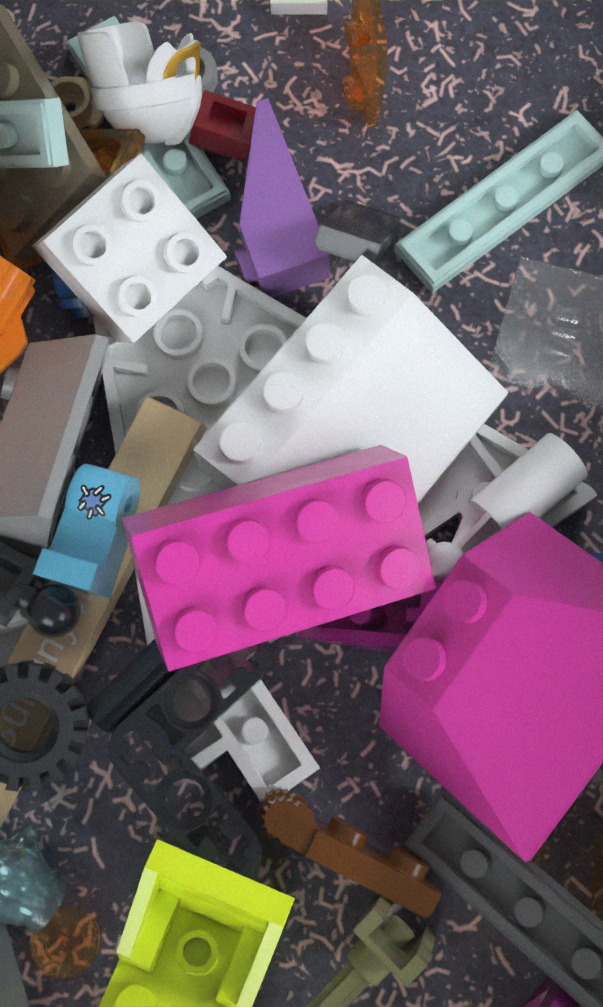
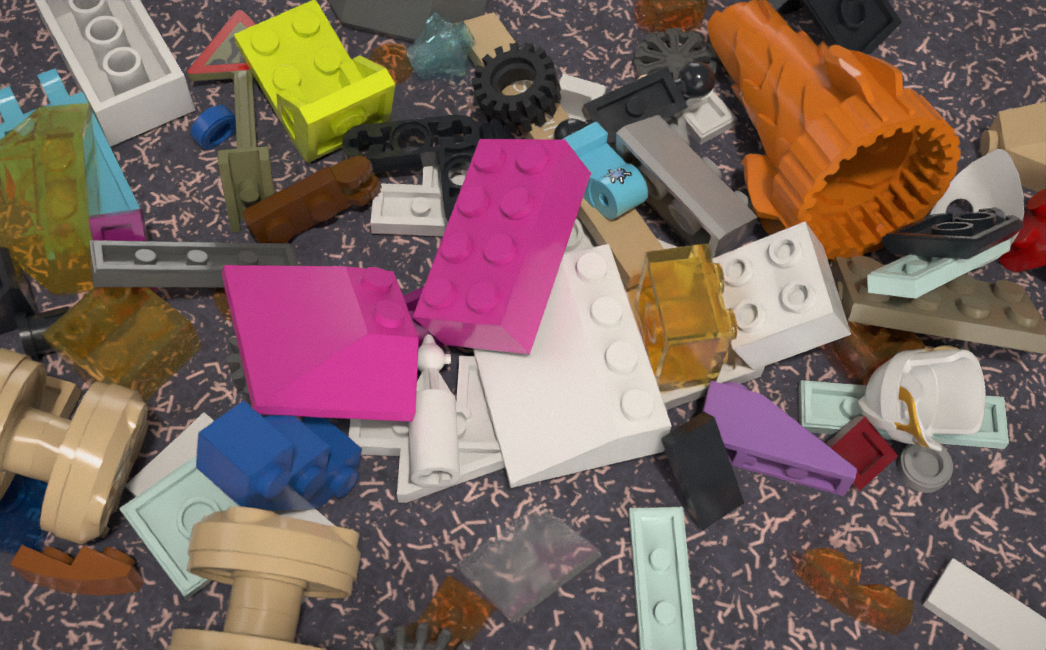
camera: 120 degrees right, 15 degrees down
(224, 321) = (684, 316): none -> clear yellow brick

